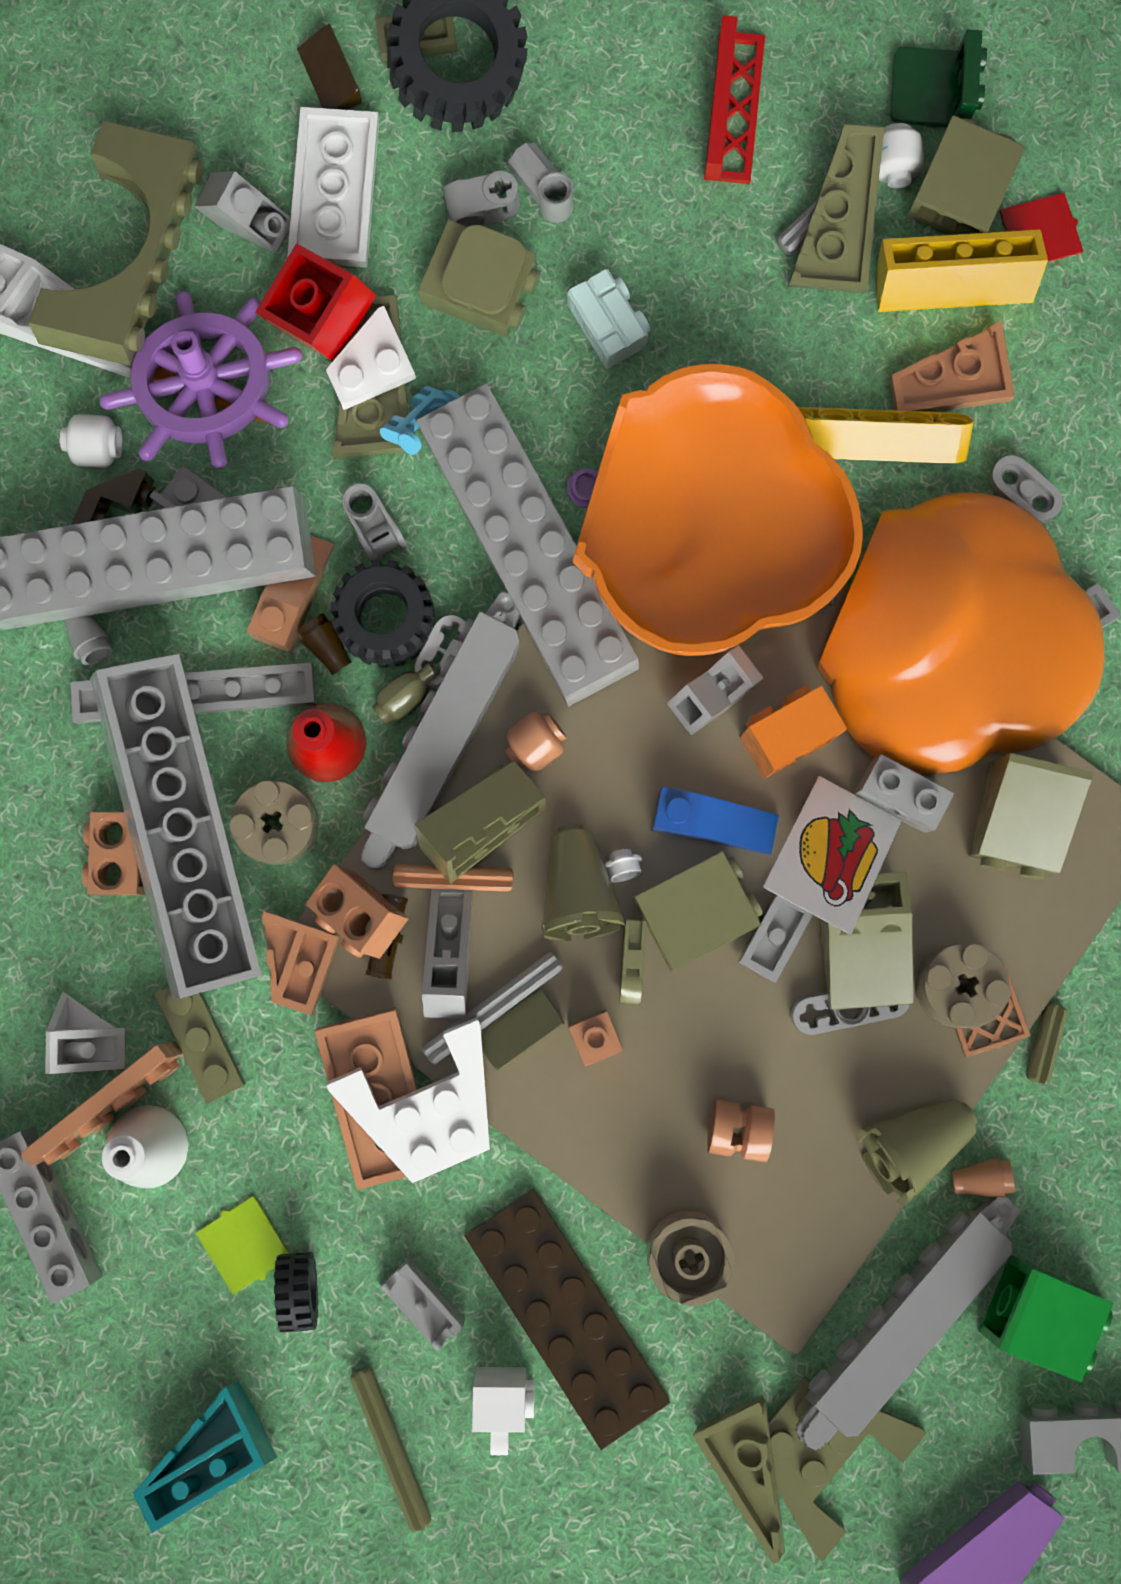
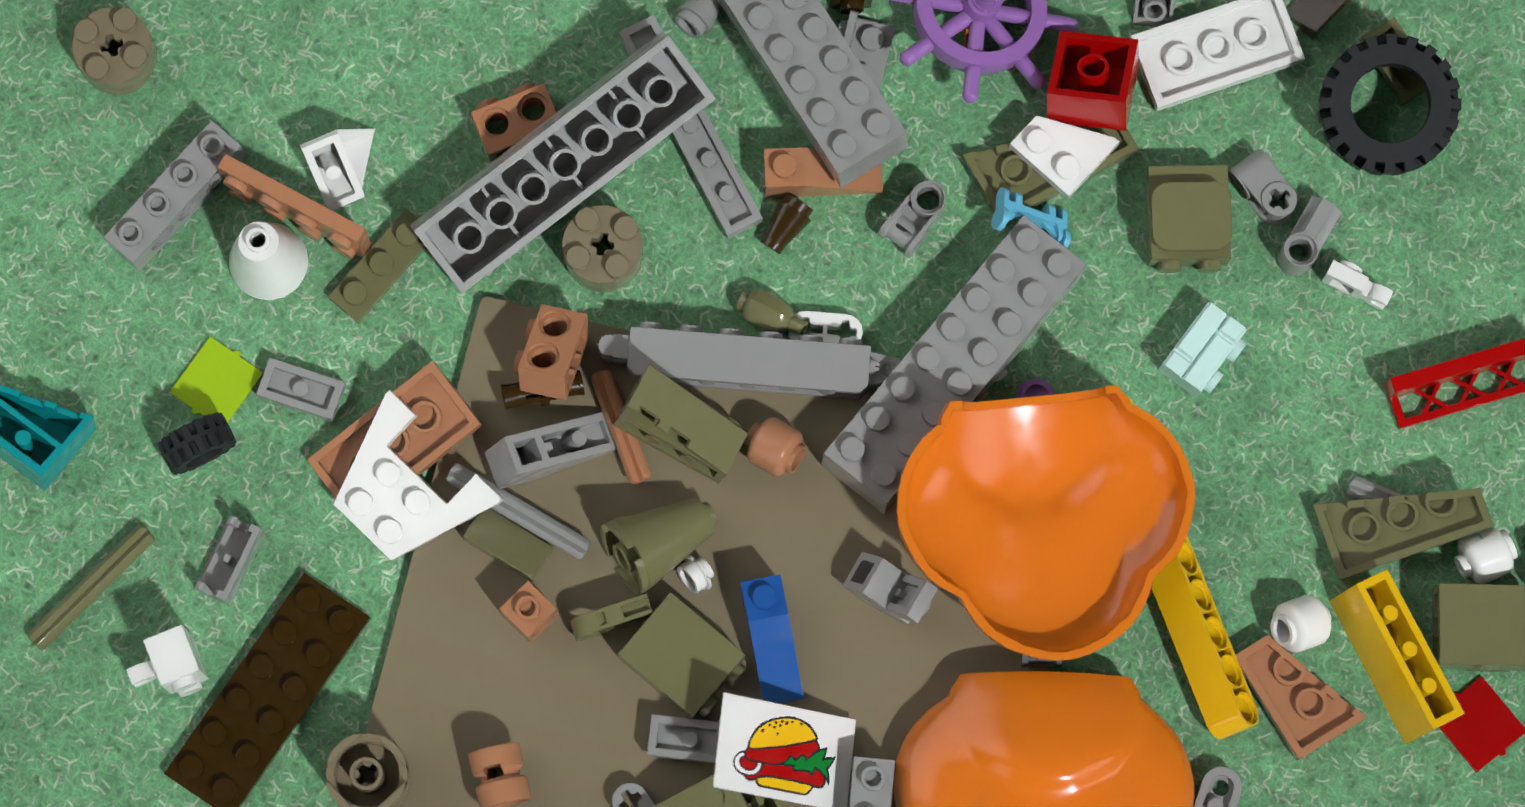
camera: 65 degrees right, 5 degrees down
(286, 1166) = (301, 389): none -> light grey plate
(297, 961) = (487, 321): nougat wing -> none
(336, 748) = (696, 263): red cone -> none
(364, 586) = (841, 230): black tyre -> none
(600, 162) = (1350, 280): none -> white plate
(795, 730) = (881, 668): orange piece -> none
(894, 340) = (1301, 623): none -> white head

